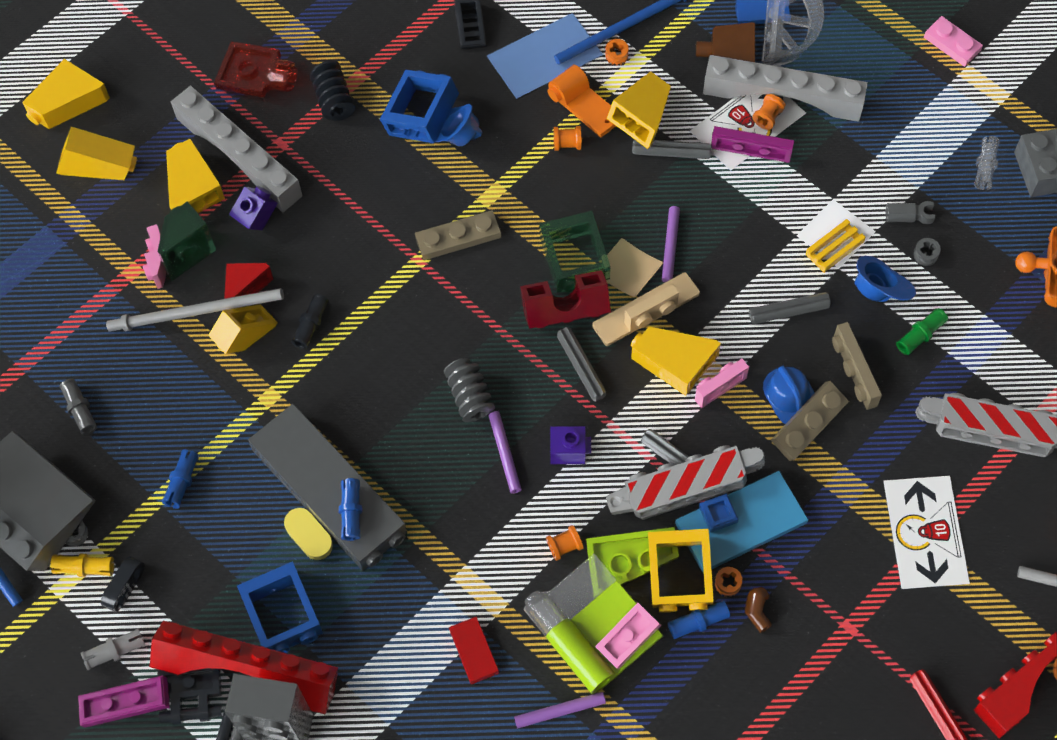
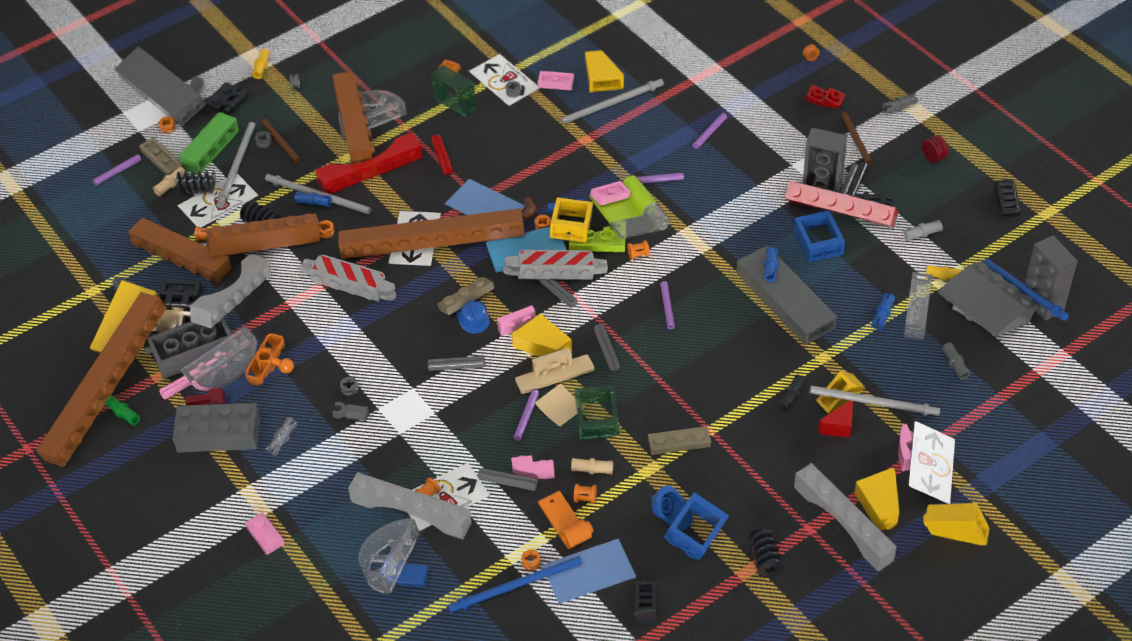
camera: 170 degrees left, 15 degrees down
(64, 95) = (986, 580): yellow slope -> none
(121, 239) = (932, 462): none -> white sticker
(122, 584) = (918, 259): black beam -> none
(123, 701) = (915, 203): magenta tile -> none
(128, 455) = (917, 306): none -> clear window
(184, 240) = (880, 445): clear green slope -> none
(253, 207) = (832, 465): dark purple brick -> none
(254, 70) = (828, 580): clear red plate -> none
(308, 533) = (800, 270): light yellow tile -> none
(468, 390) = (685, 333): dark grey piece -> none
(473, 650) = (702, 209): red tile -> none
(565, 178) = (592, 466): none -> tan pin
(569, 445) = (625, 298): dark purple brick -> none
(587, 300) = (616, 376): dark red arch -> none
(641, 108) = (522, 499): yellow slope -> none
(651, 161) = (525, 467): none -> bright pink slope
(718, 513) = (539, 244): blue tile -> none
(730, 41) = (440, 543): reddish brown torso -> none
(752, 144) = (448, 467): magenta tile -> none
(834, 616) = (476, 199): none -> medium blue sticker
(850, 232) = (409, 396): yellow tile -> none
(856, 366) = (426, 320): dark tan plate -> none
(880, 282) = (388, 360): blue piece -> none
(897, 516) = (431, 233): none -> dark orange brick
(922, 331) = (373, 336): green pin -> none

